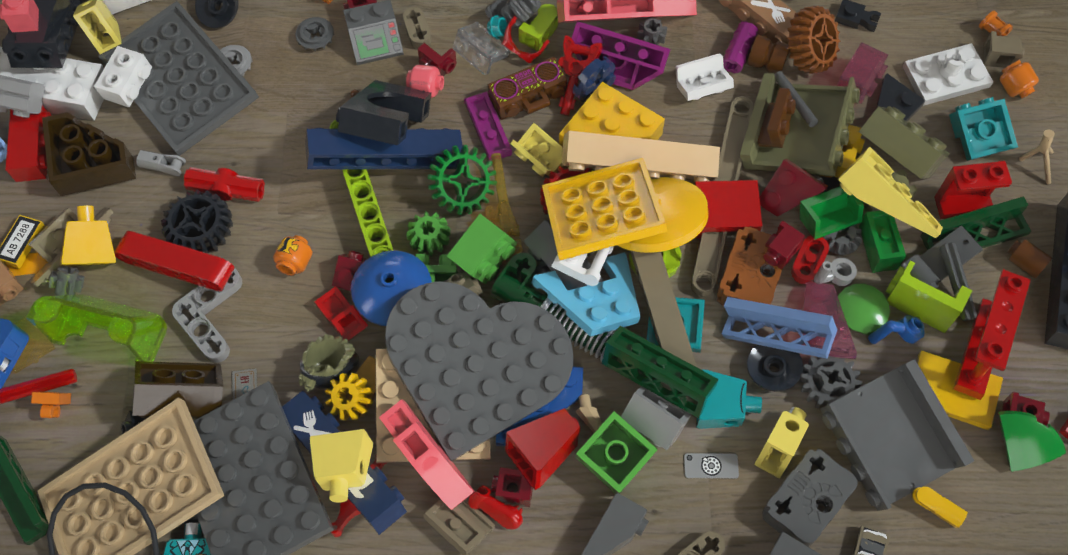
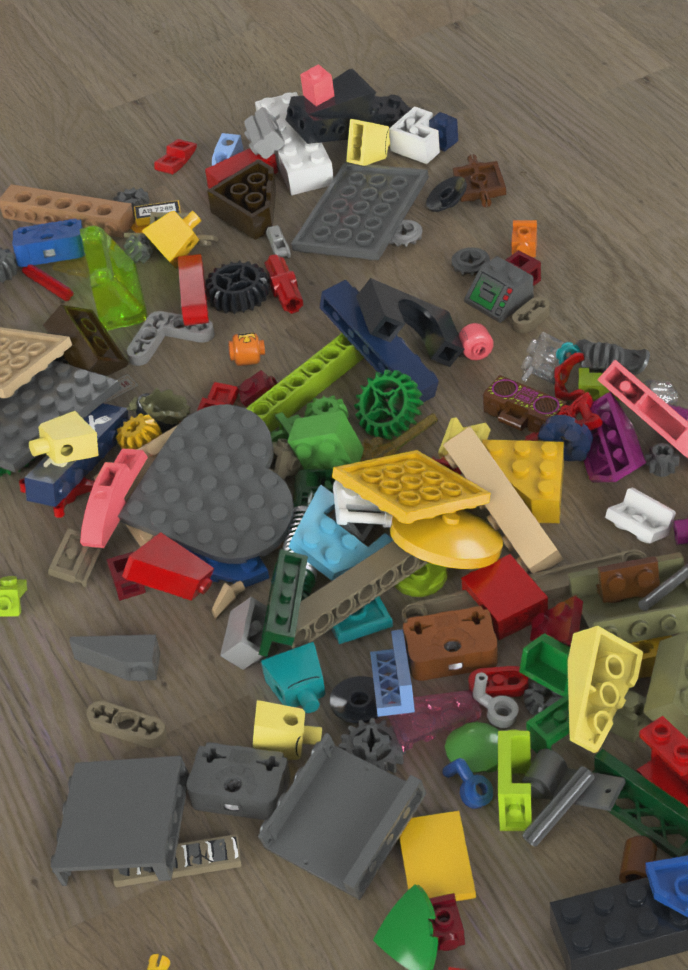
camera: 65 degrees right, 20 degrees down
(50, 402) = (39, 293): orange tile -> none
(123, 76) = (330, 179): white brick -> none
(377, 298) = (263, 400): blue dish -> none
(445, 63) = (504, 343): dark red bracket -> none
(487, 125) = (465, 405): magenta tile -> none
(506, 515) = (98, 578): red piece -> none
(615, 453) = (193, 621): bright green brick -> none
(711, 465) = (233, 704): light grey sticker -> none
(783, 245) = (478, 637): dark red brick -> none
(939, 506) = (294, 888): yellow bar -> none
(992, 334) = (504, 857): red fence -> none

